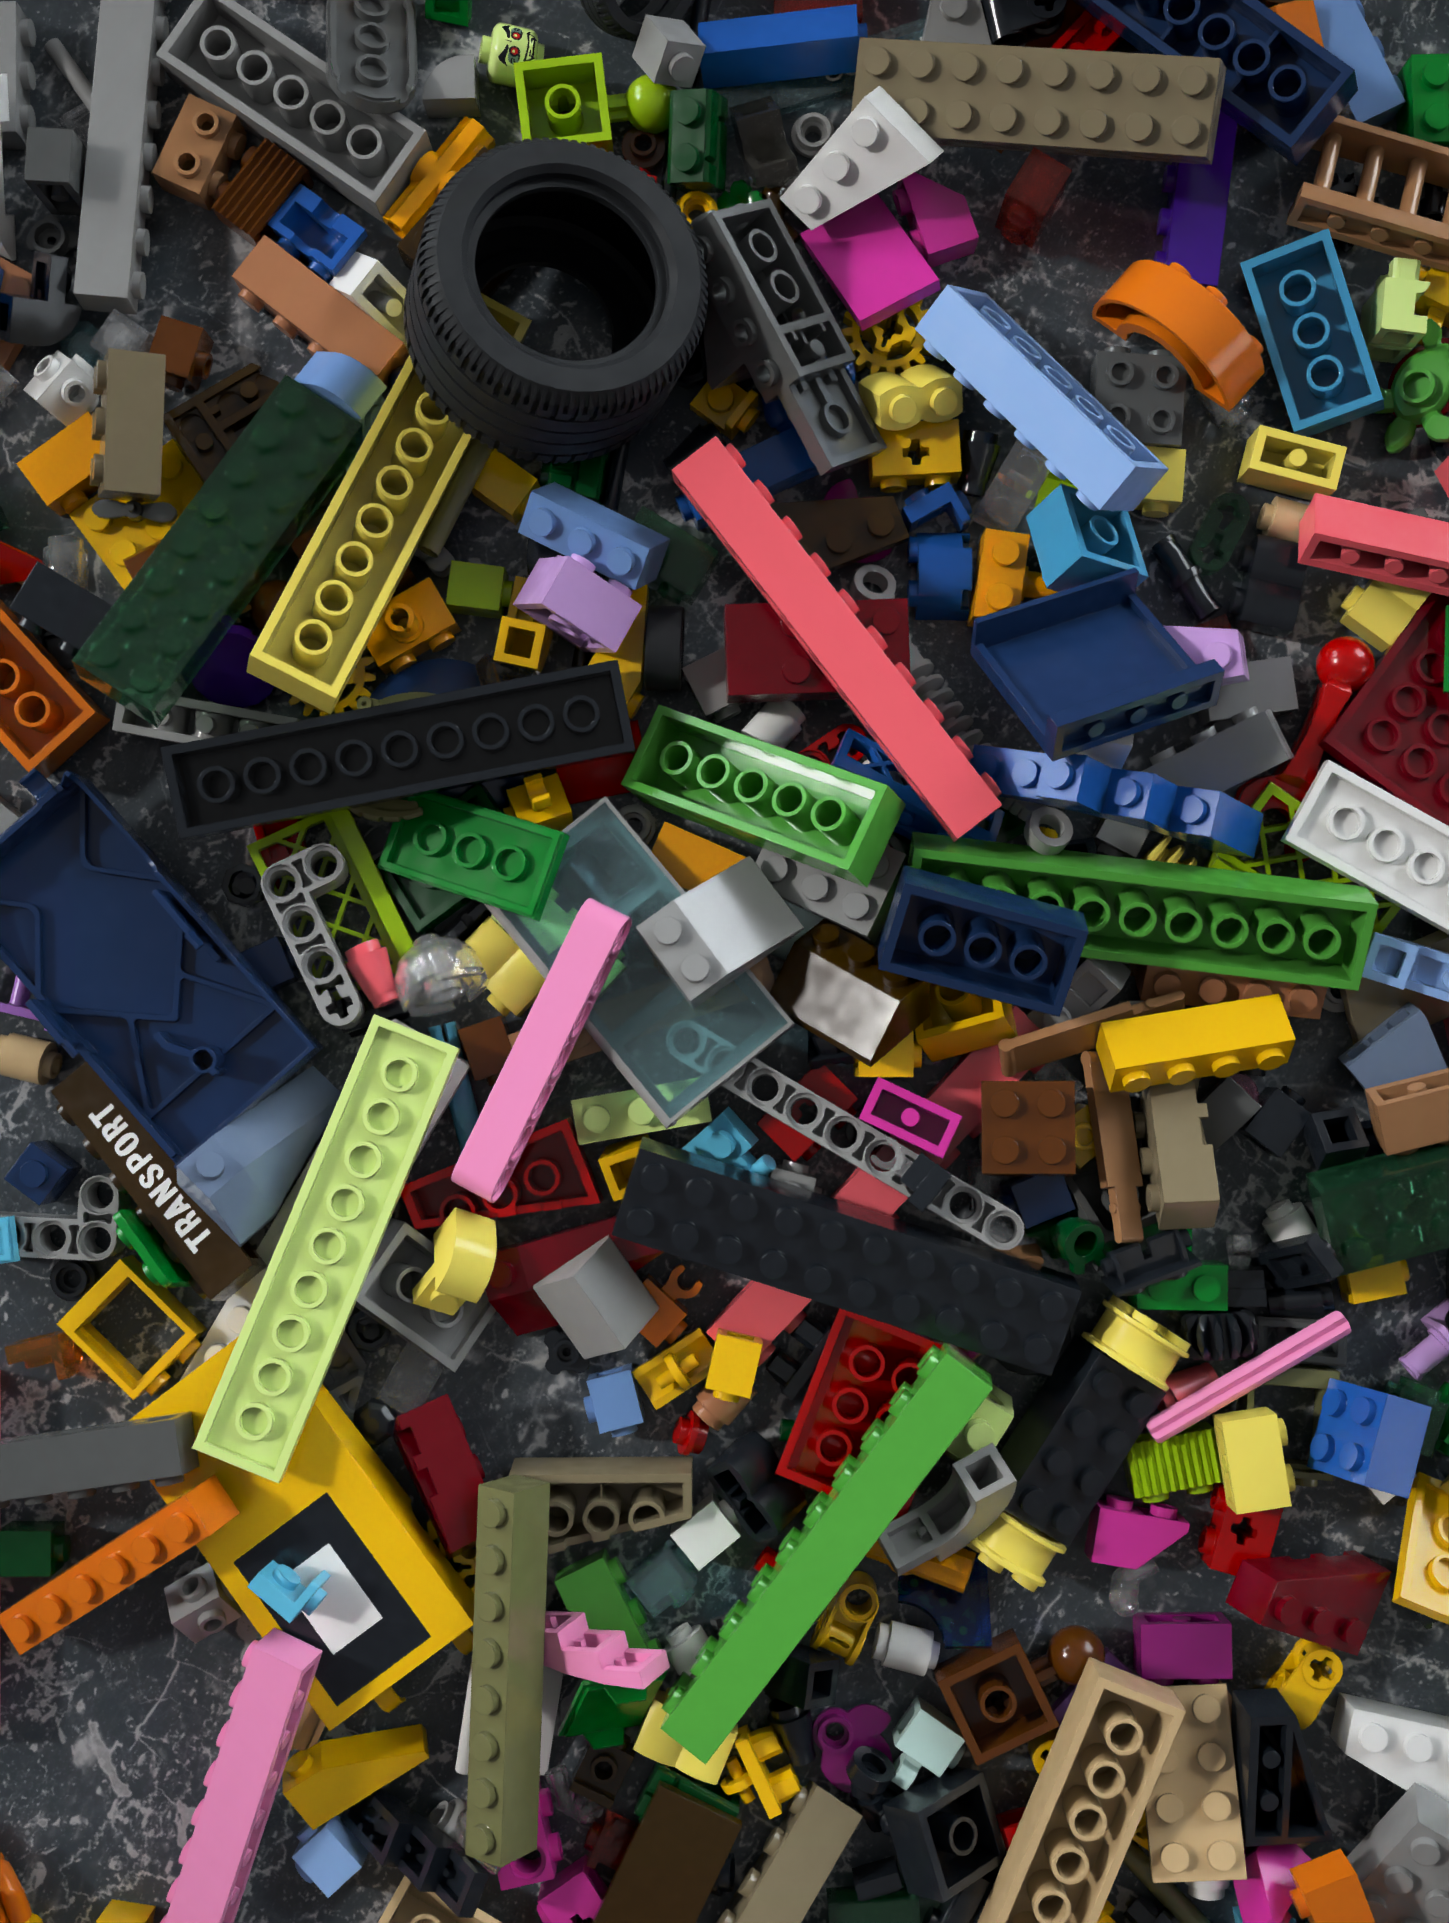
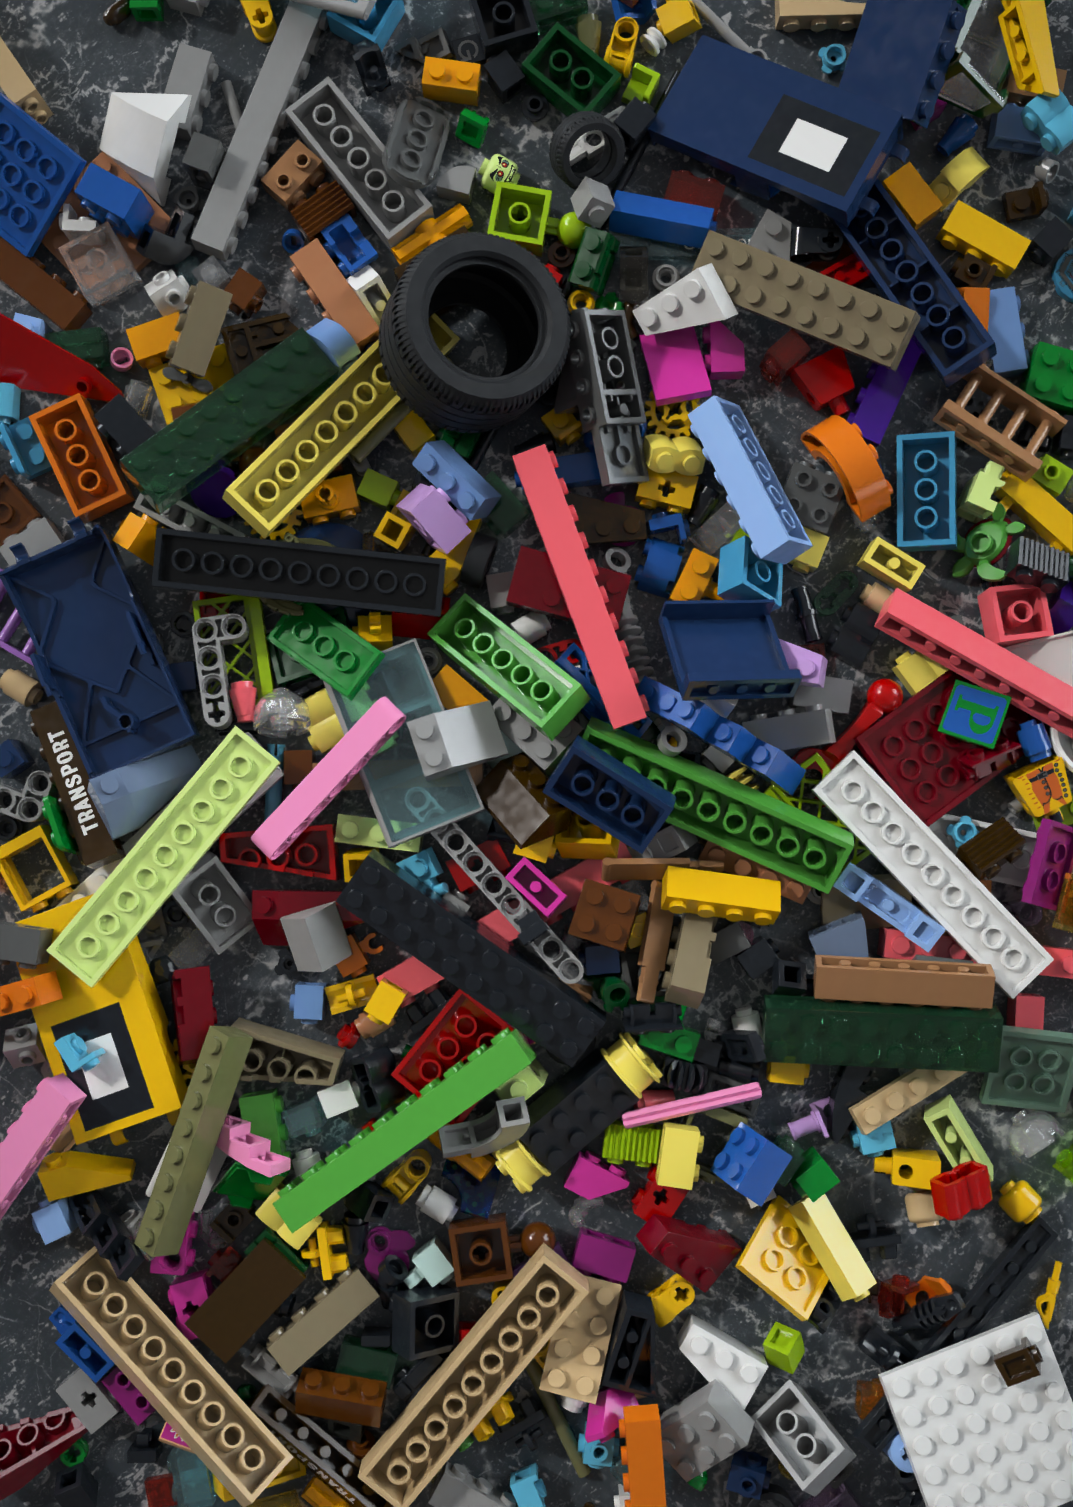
camera: 15 degrees right, 0 degrees up
(18, 507) = (119, 355): none -> bright pink hinge
(135, 772) = (138, 536): none -> light orange brick
(220, 254) = (287, 240): none -> blue hinge
(462, 1263) = (242, 890): light yellow brick -> none
(1104, 216) = (825, 381): none -> red torso

